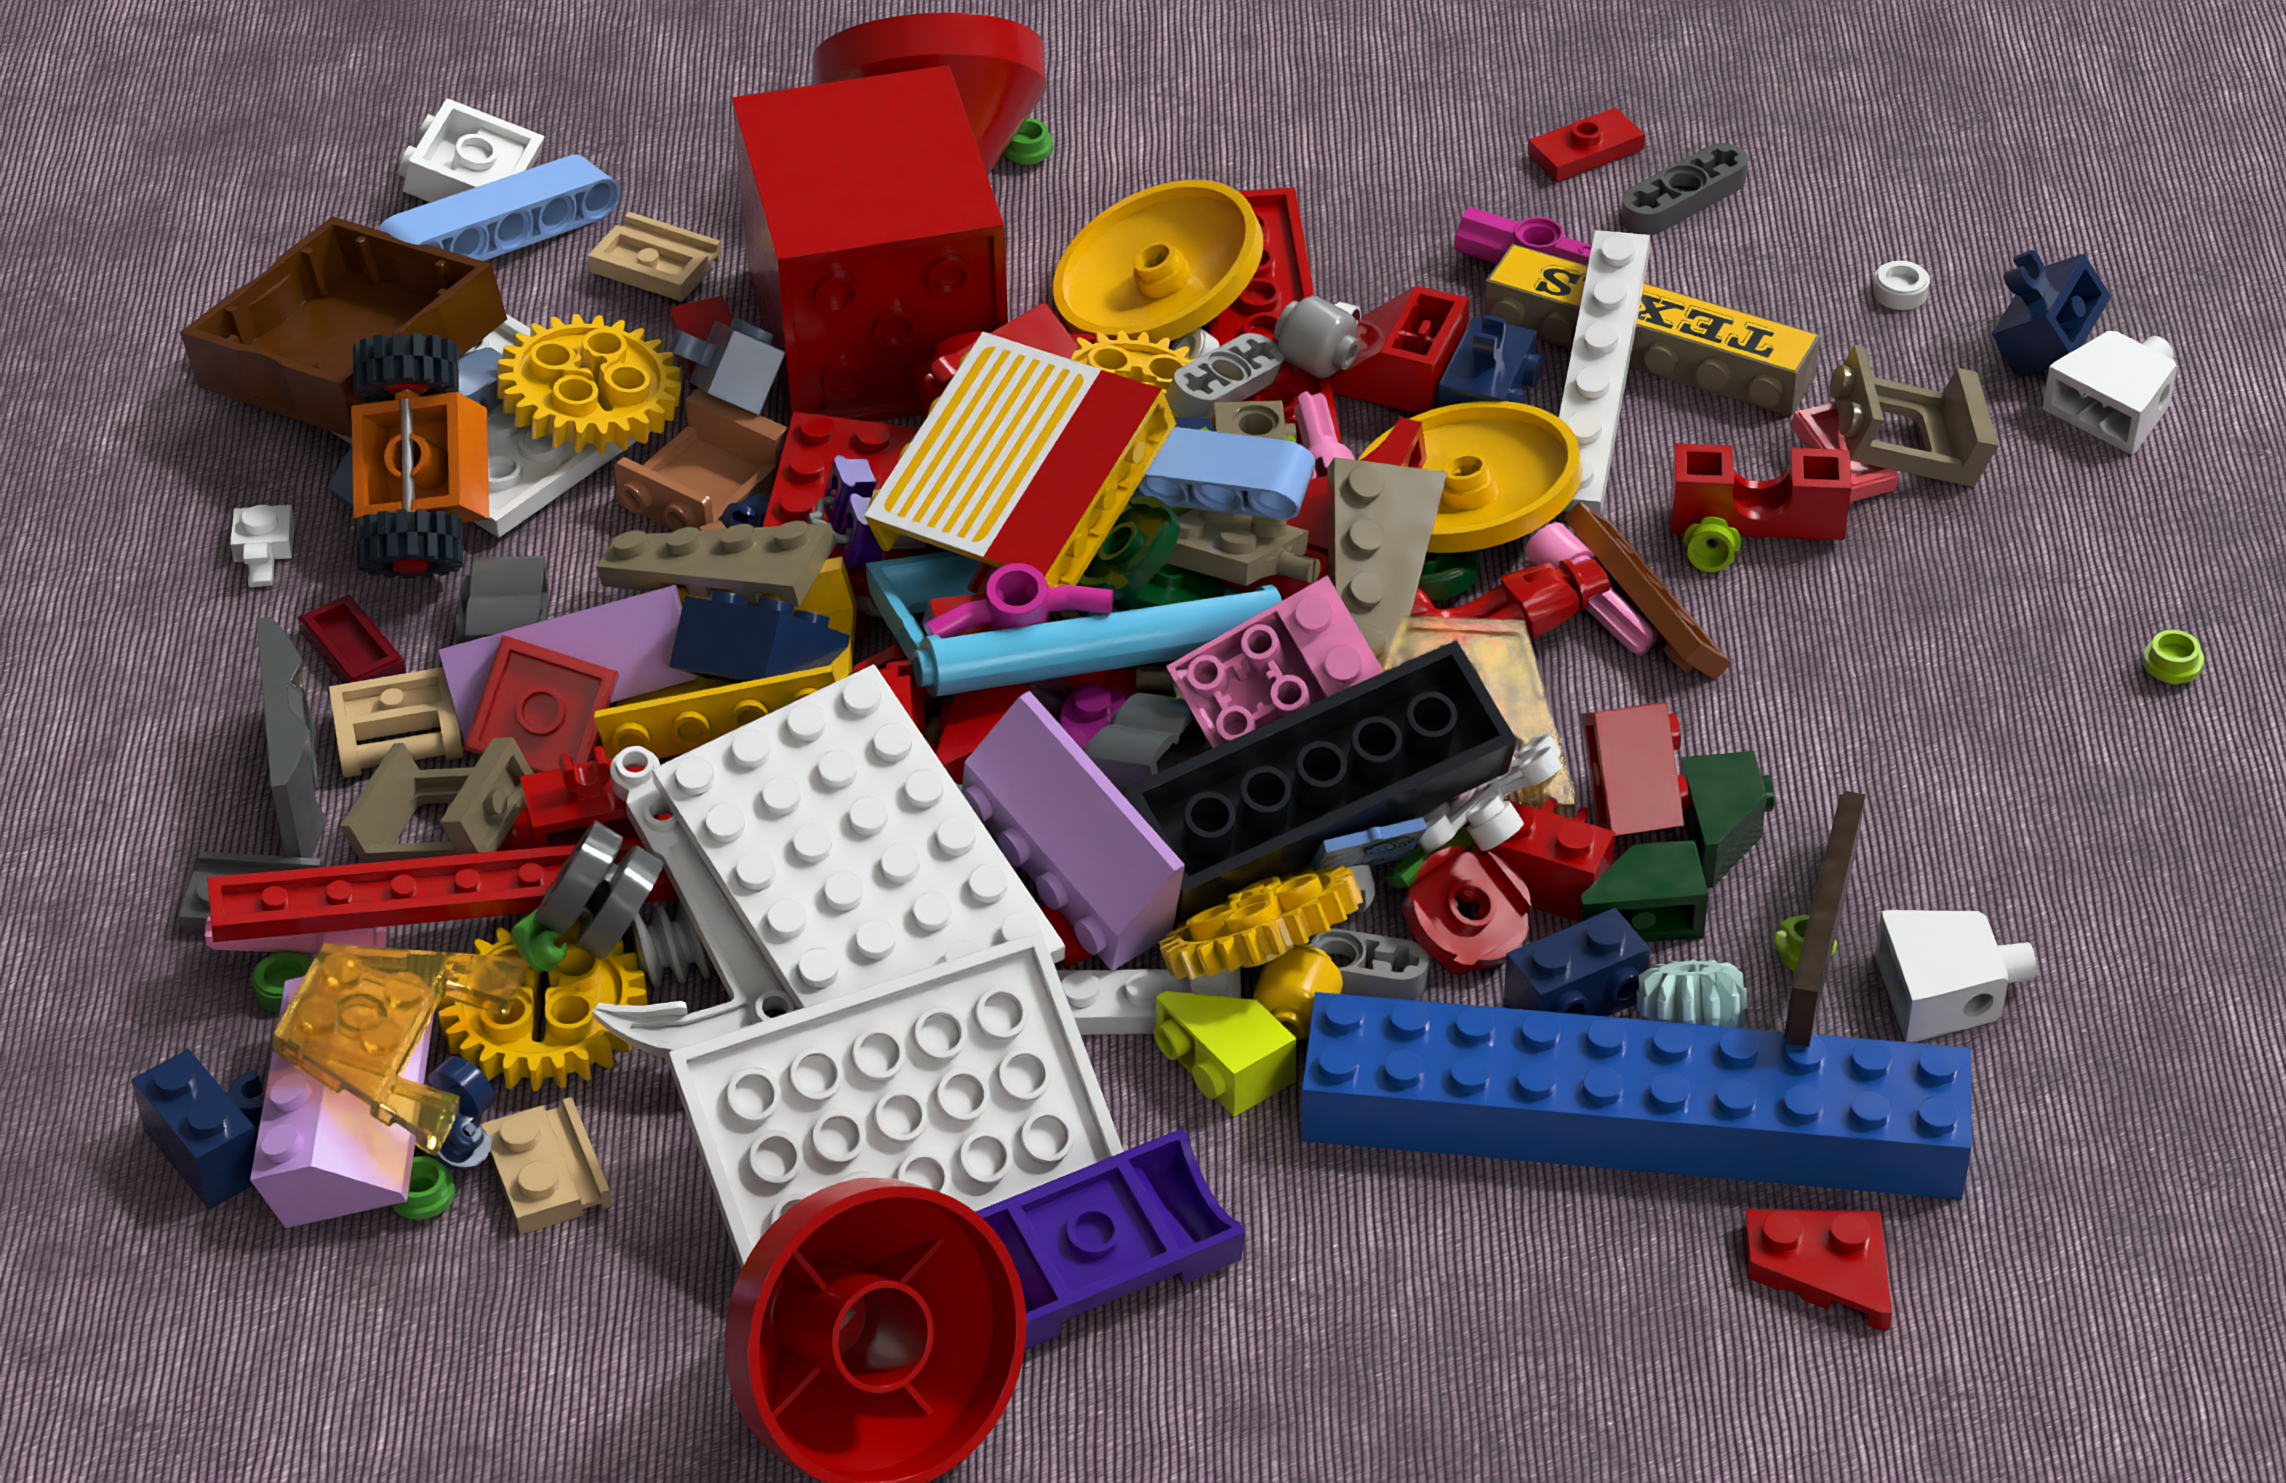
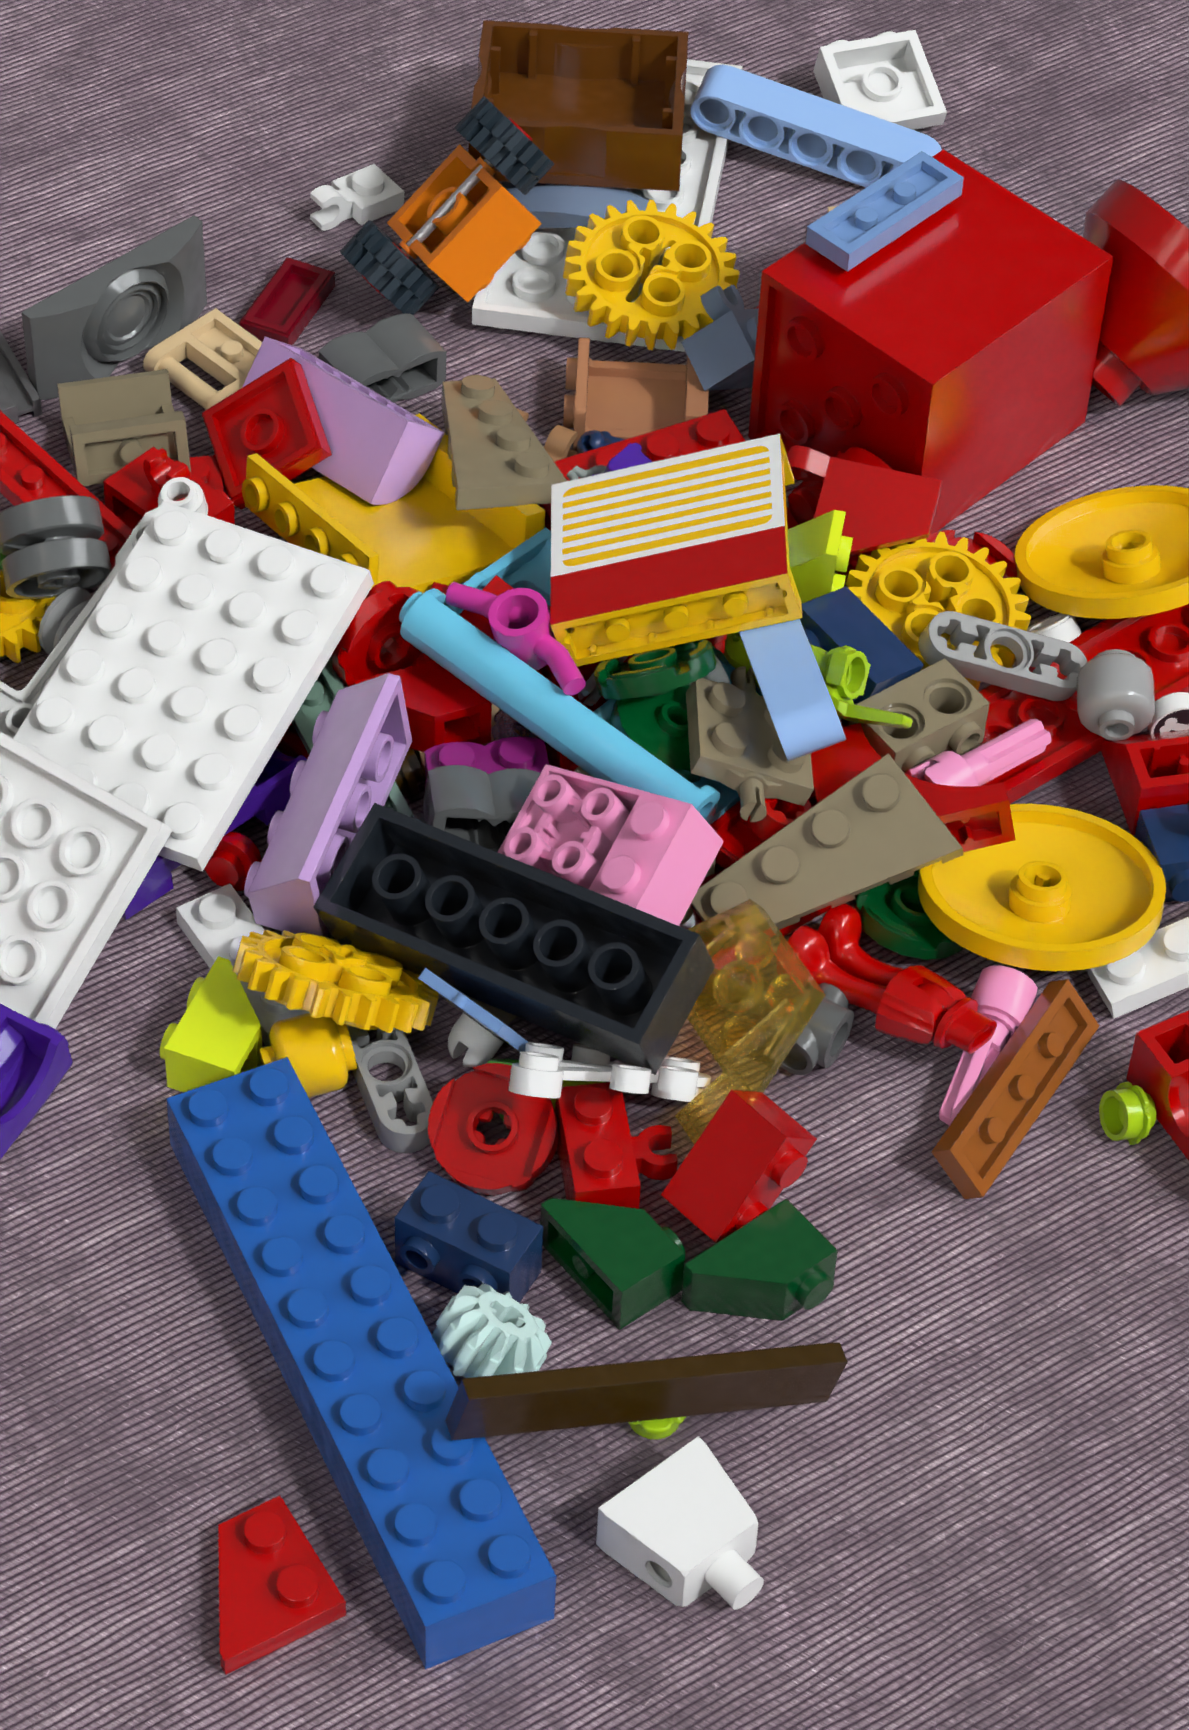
camera: 55 degrees right, 5 degrees up
(751, 642) = (406, 509): dark blue slope -> none
(791, 153) = (884, 210): none -> medium blue plate

